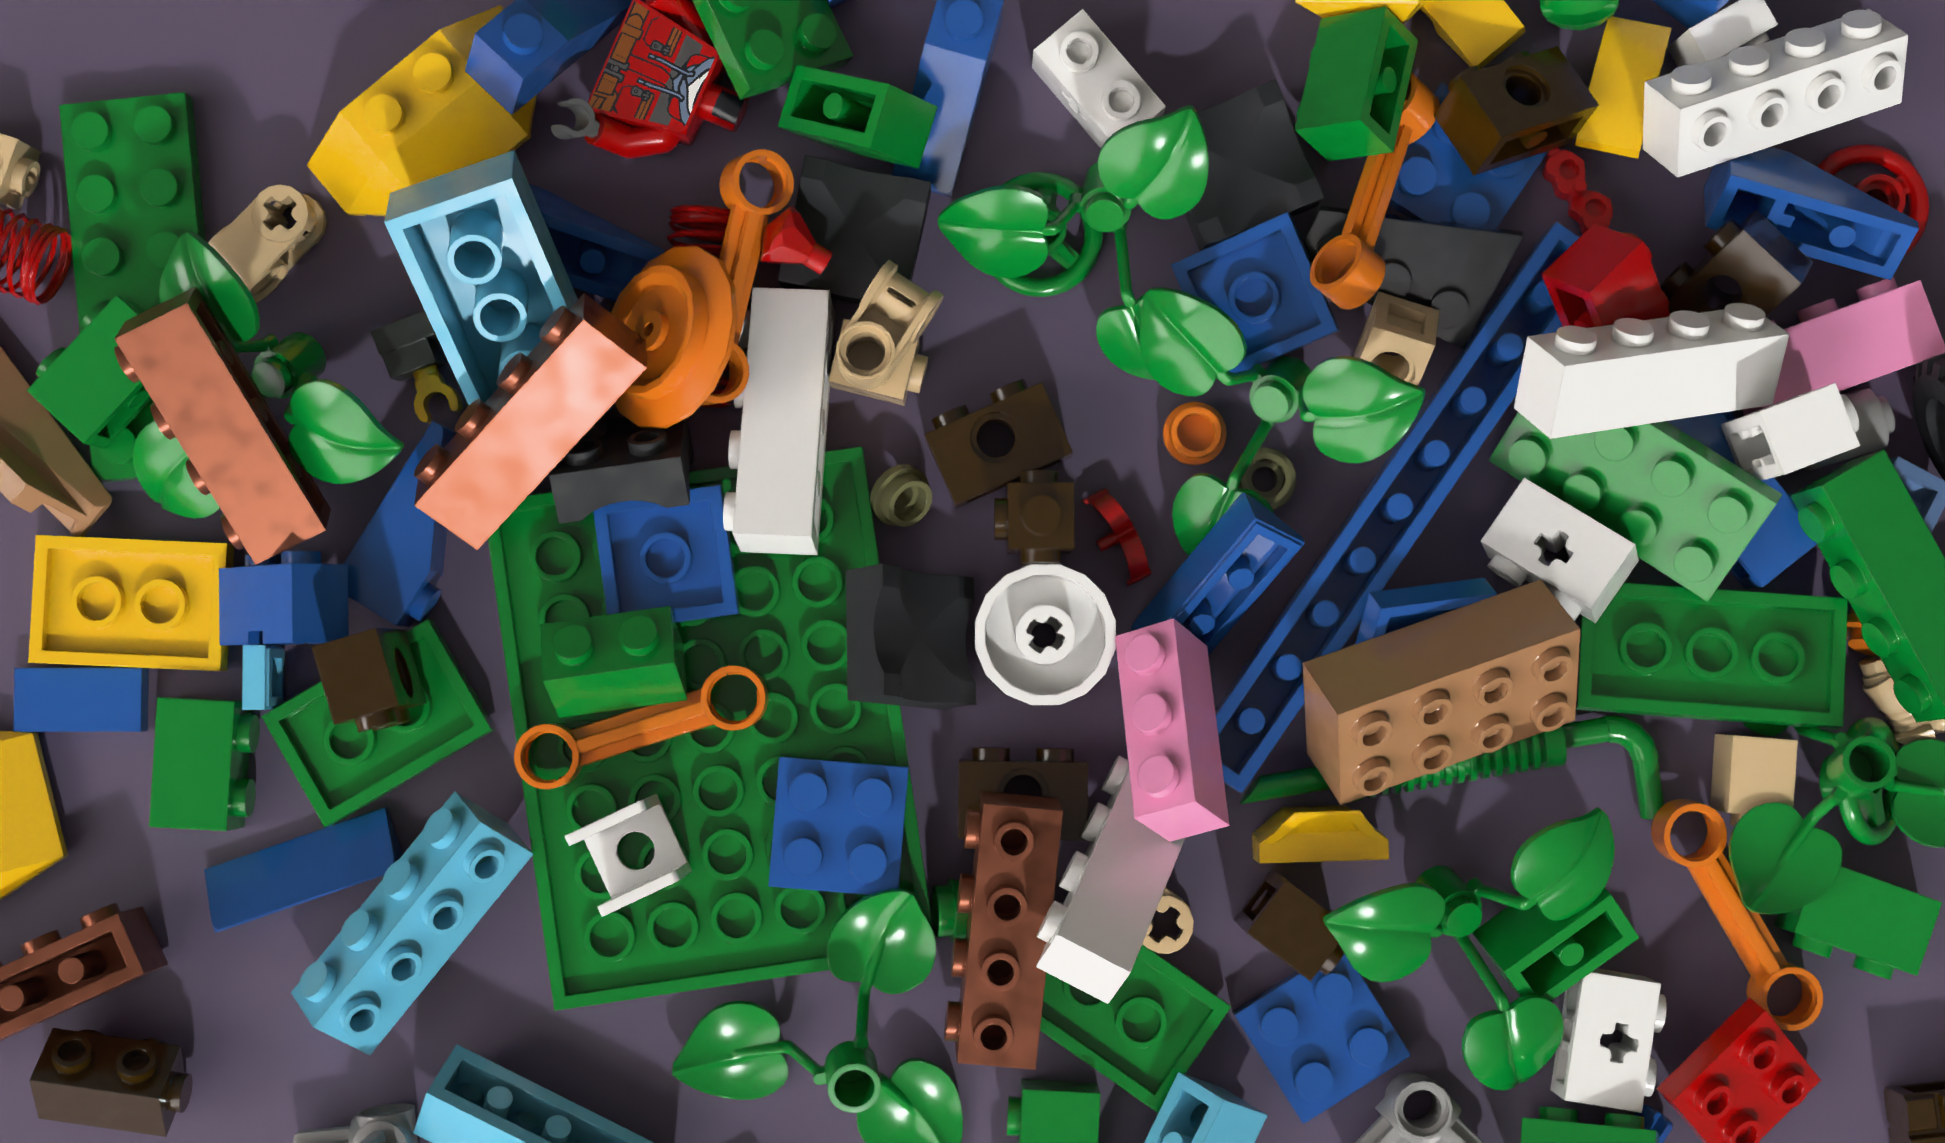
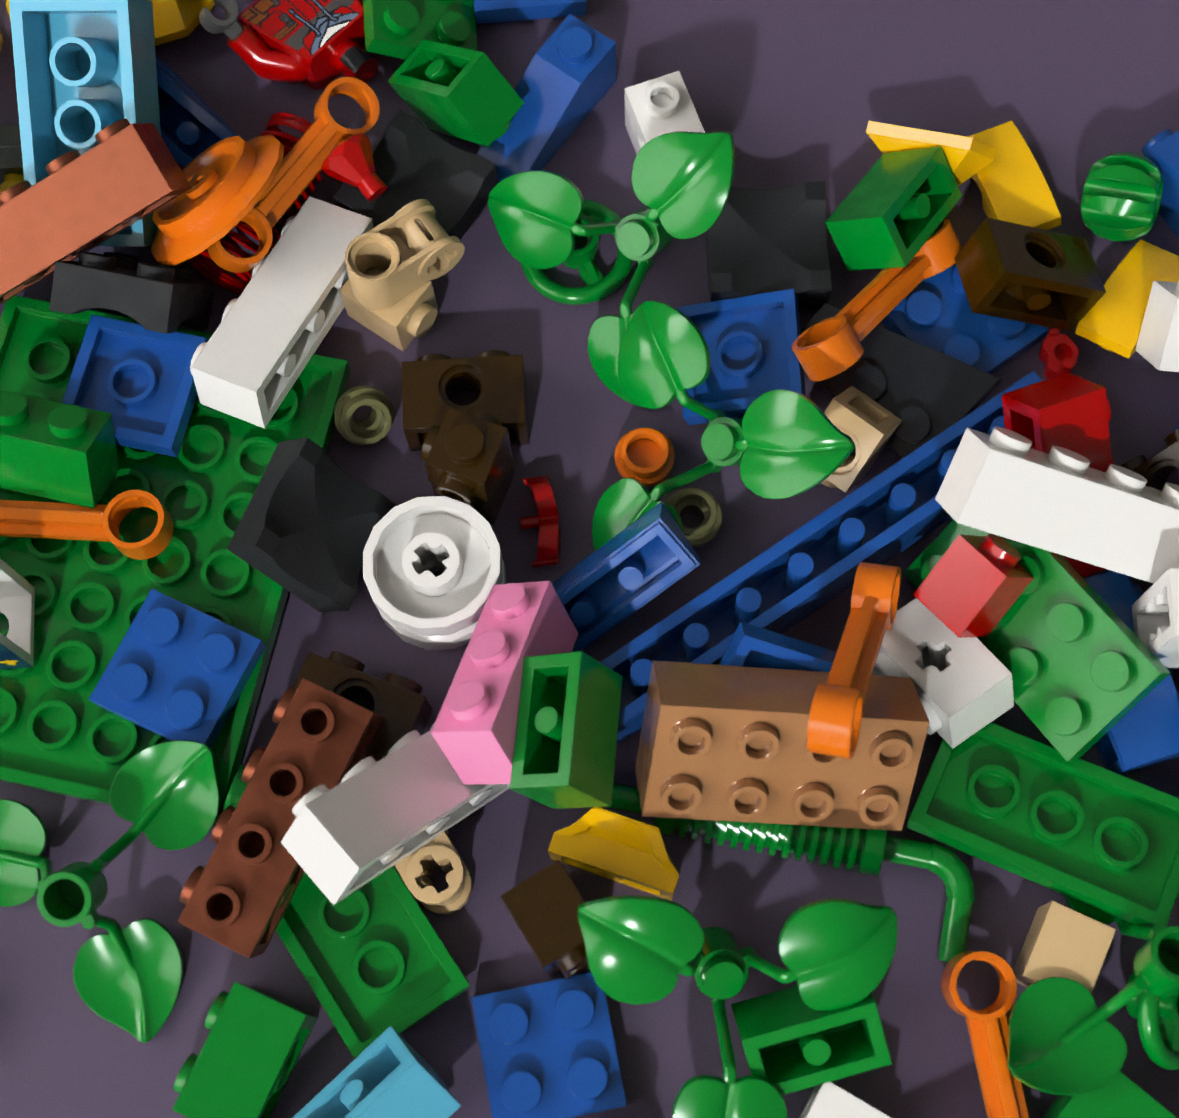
camera: 25 degrees right, 15 degrees down
(1251, 762) = (566, 731): none -> green brick
(1492, 593) = (838, 704): none -> orange piece
(1572, 476) = (974, 584): none -> brick

